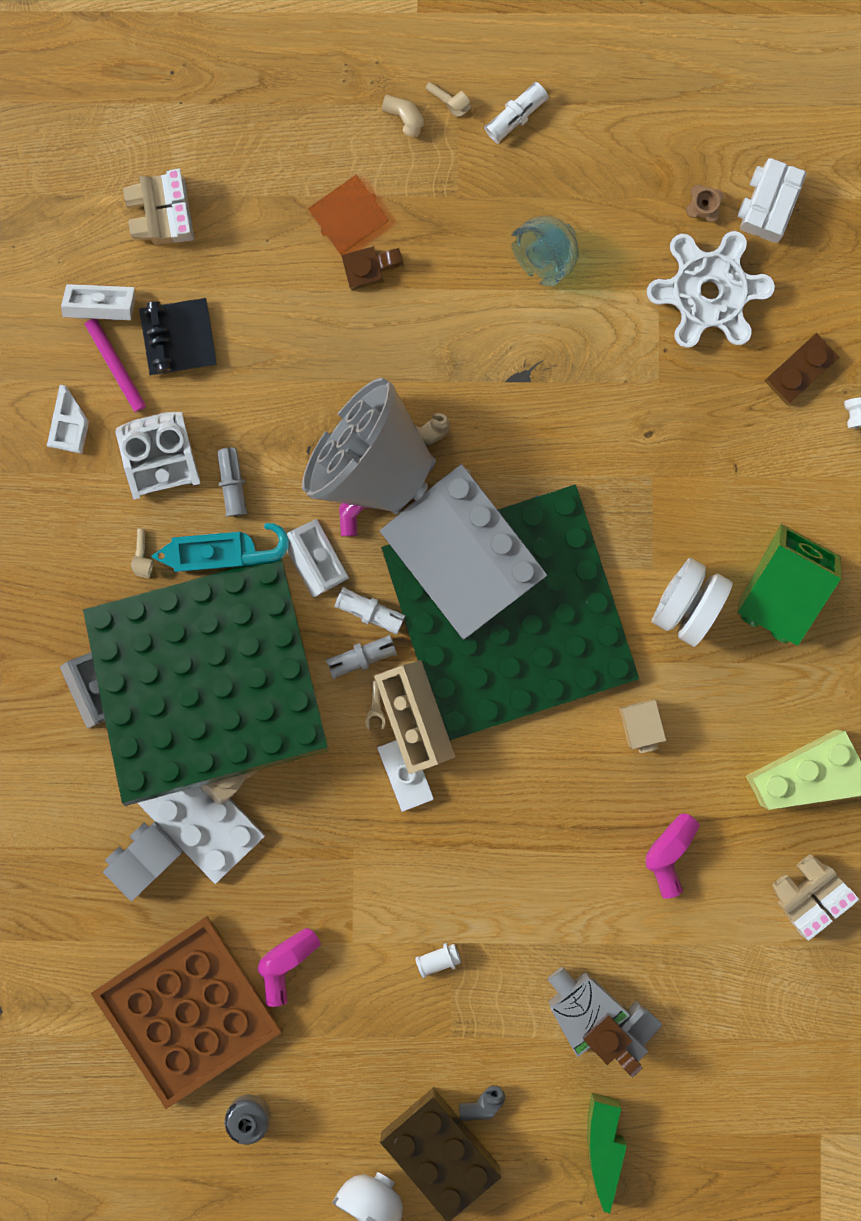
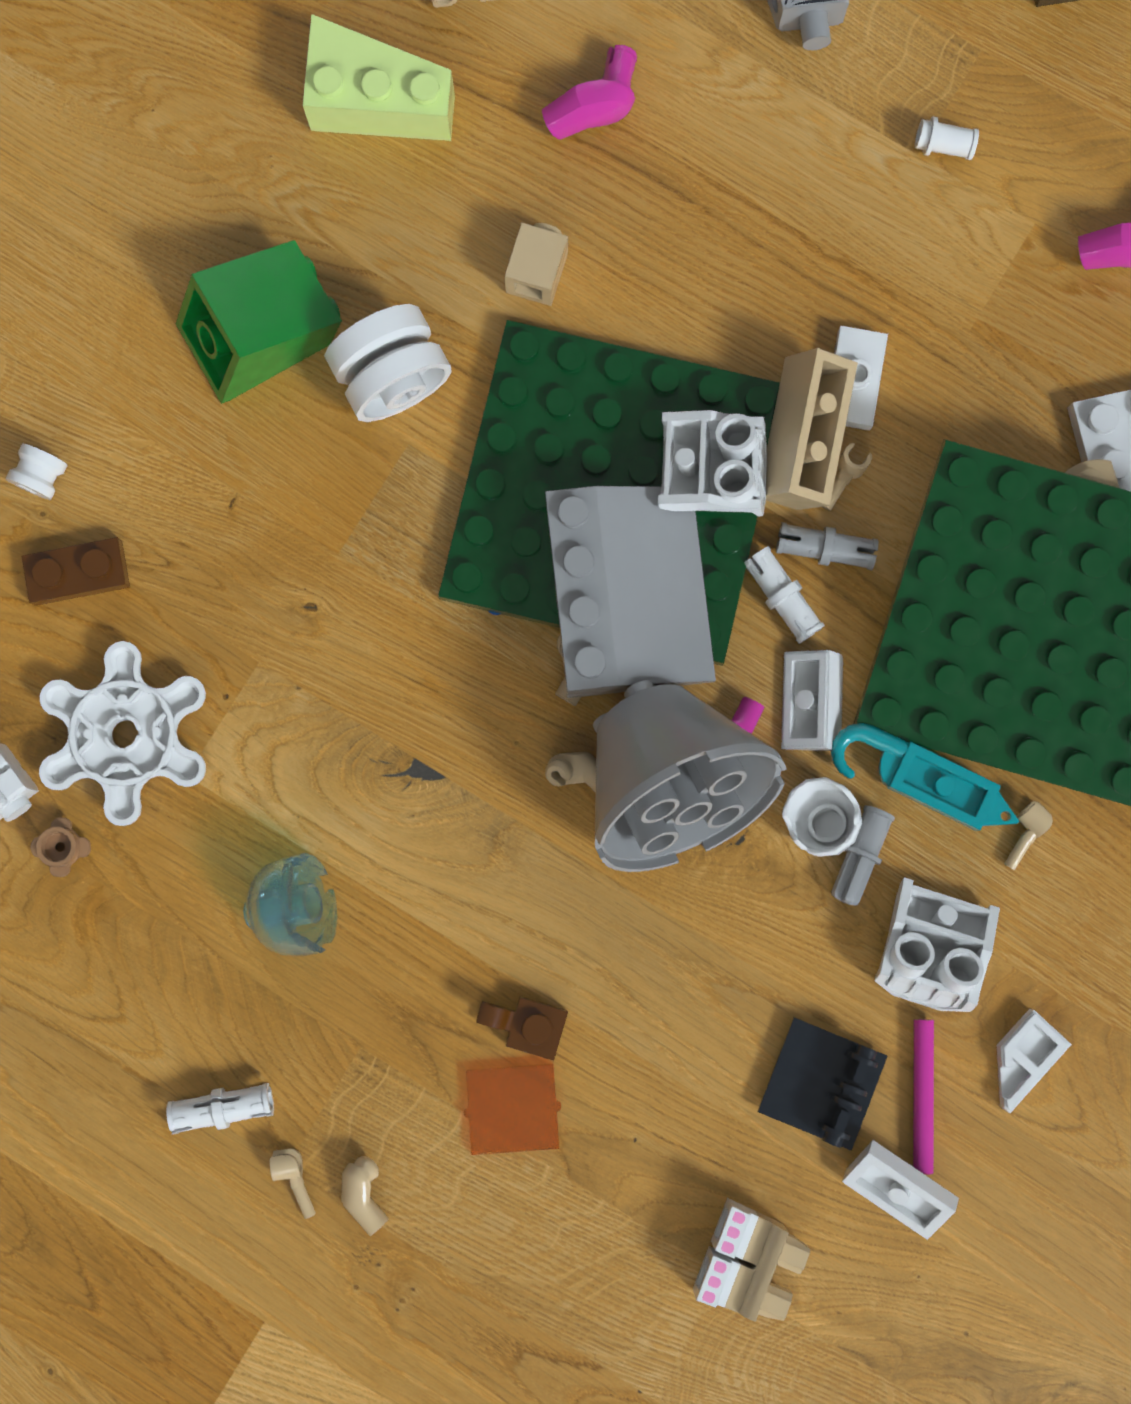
camera: 155 degrees left, 5 degrees down
(268, 488) = (822, 817): none -> white hair
(457, 658) = (713, 462): none -> white slope

